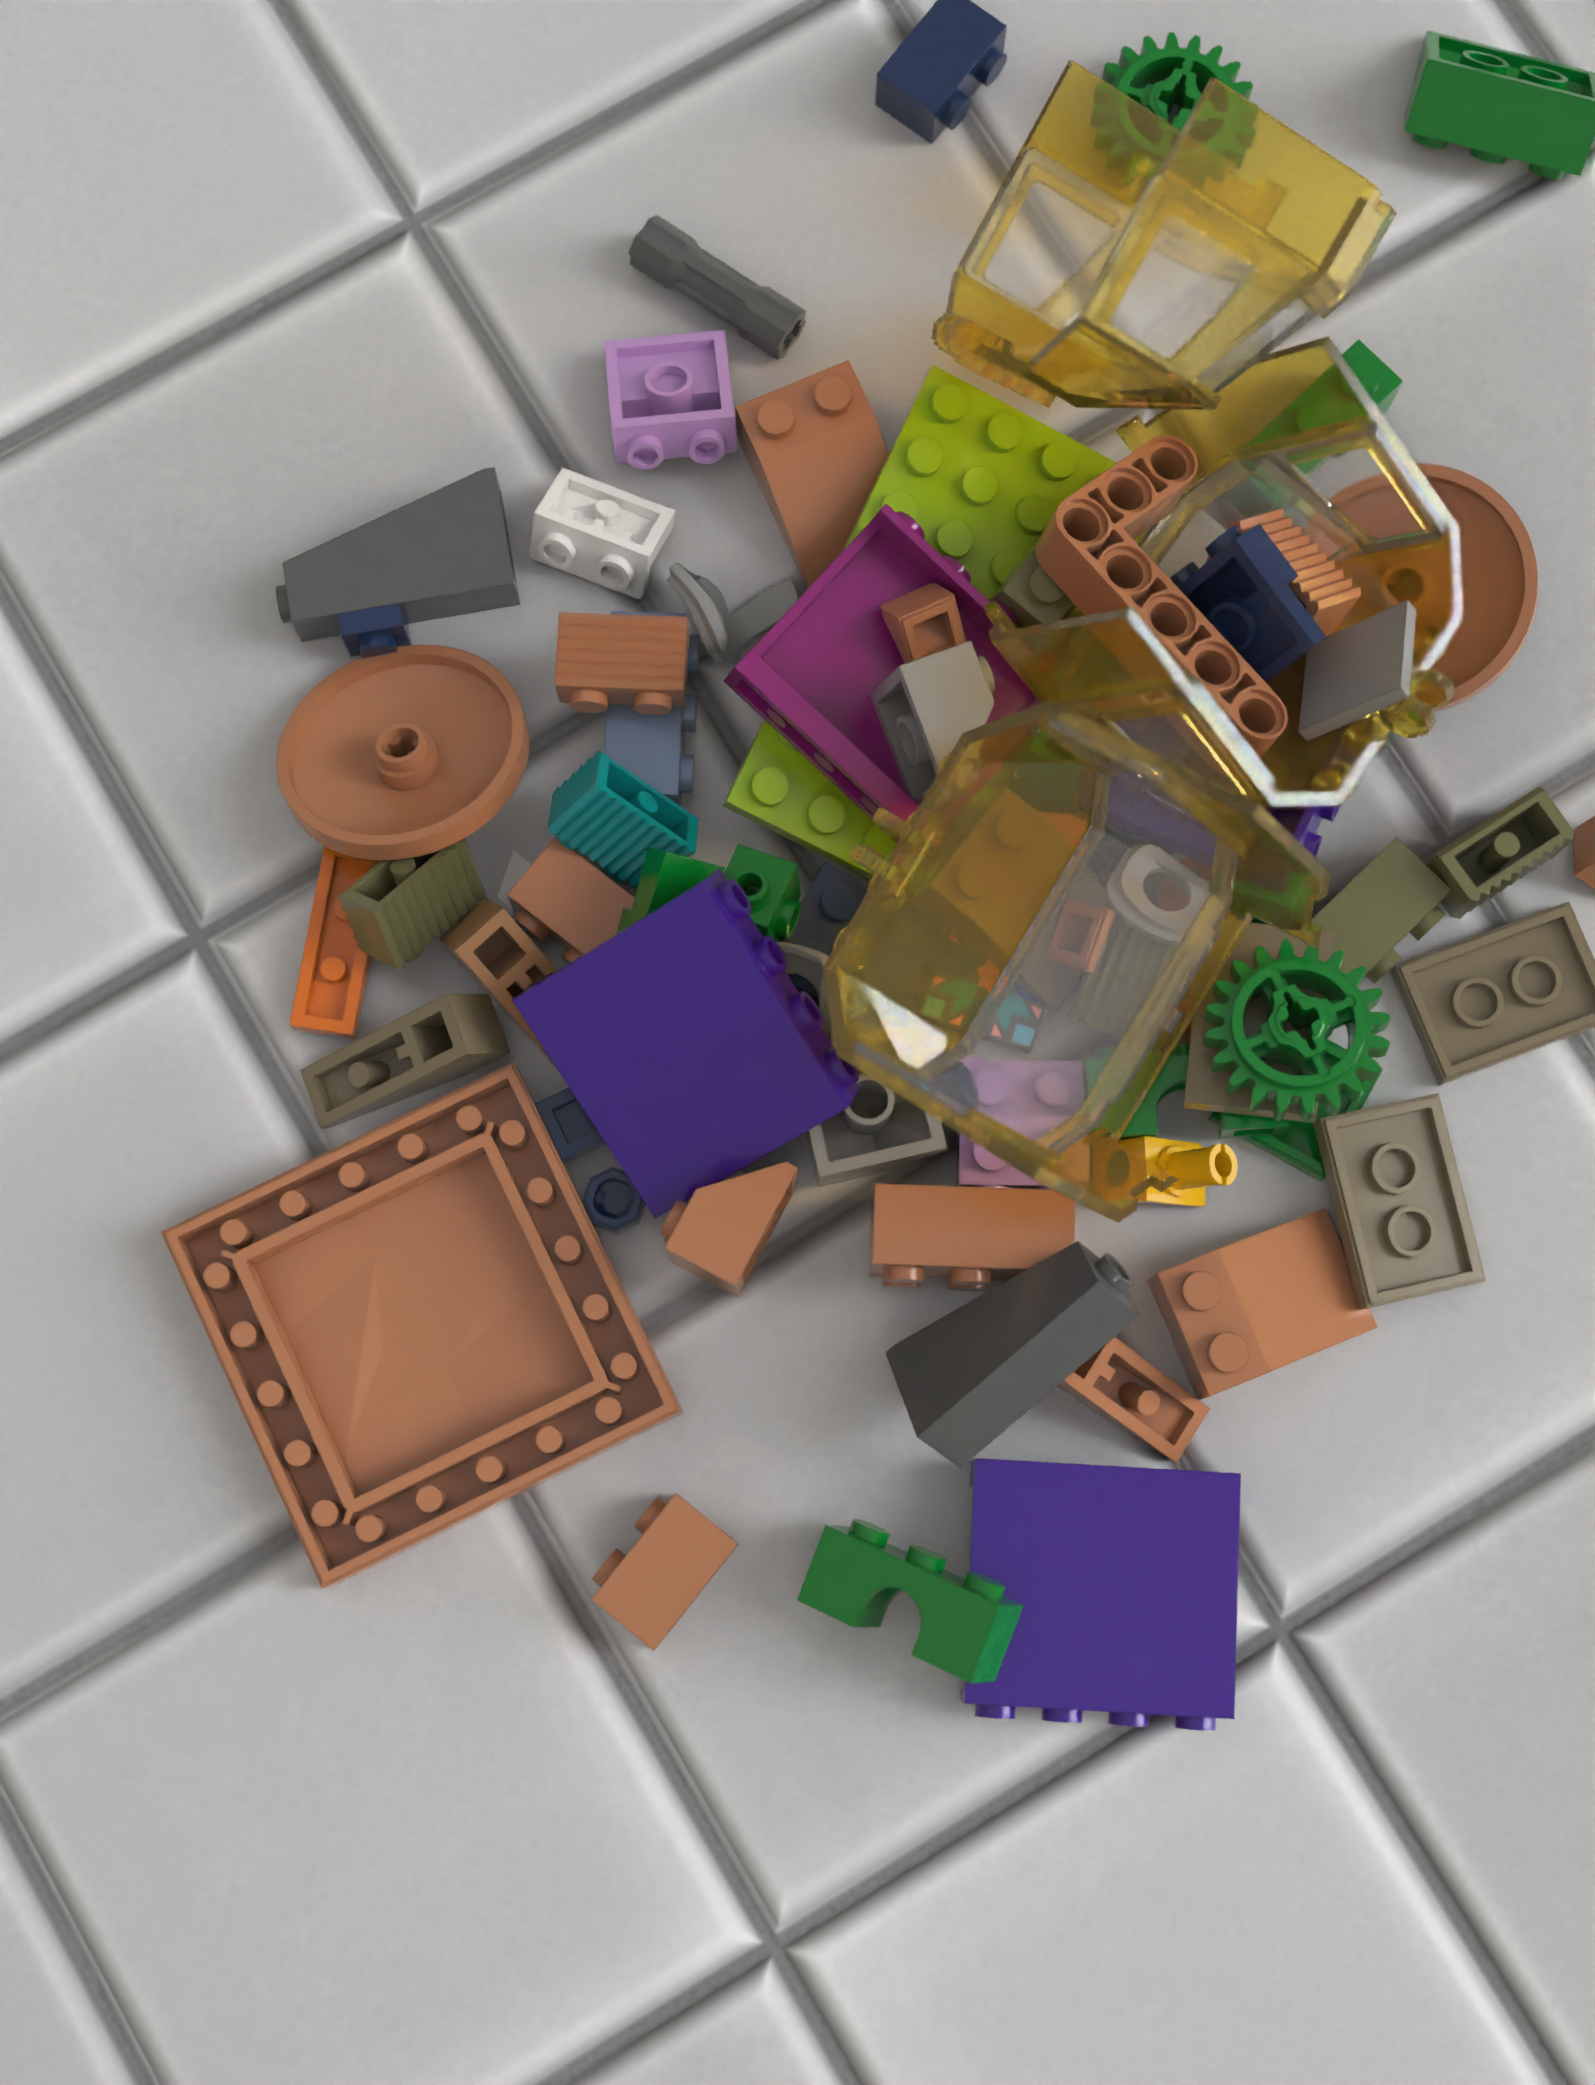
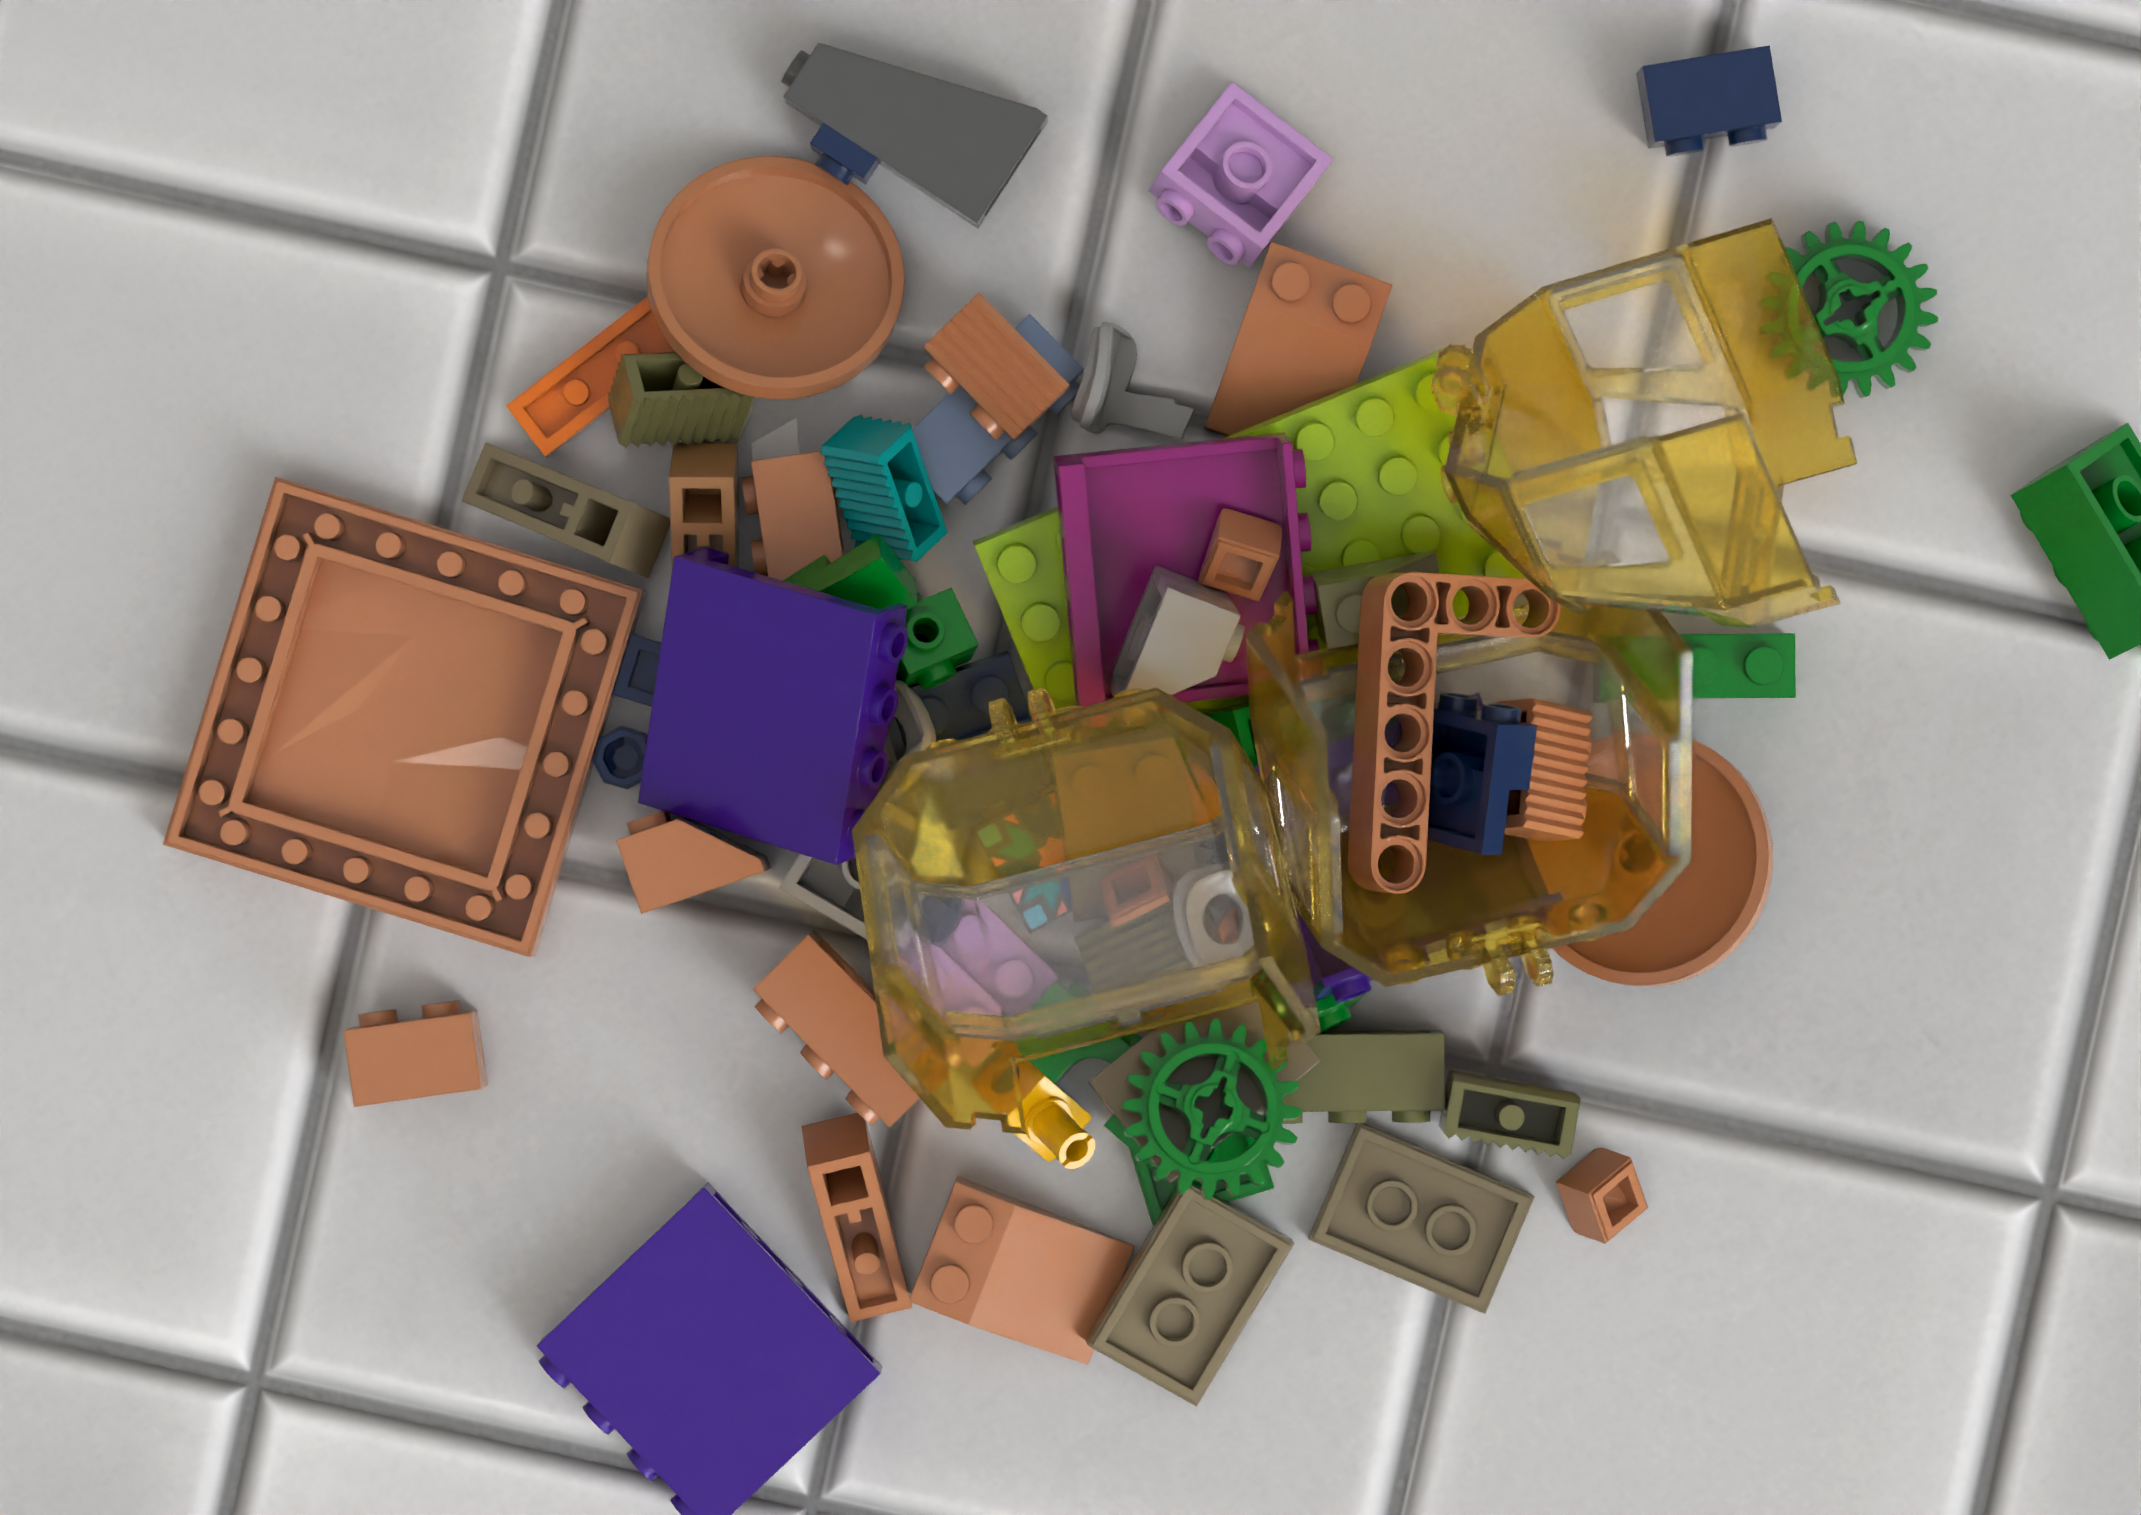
camera: 45 degrees right, 10 degrees up
(599, 532) = (1087, 233): white bracket -> none
(680, 264) = (1361, 117): dark grey axle -> none
(962, 1619) = (586, 1287): green arch -> none
(1009, 1349) = (790, 1137): dark grey slope -> none
(1358, 671) = (1510, 896): light grey piece -> none

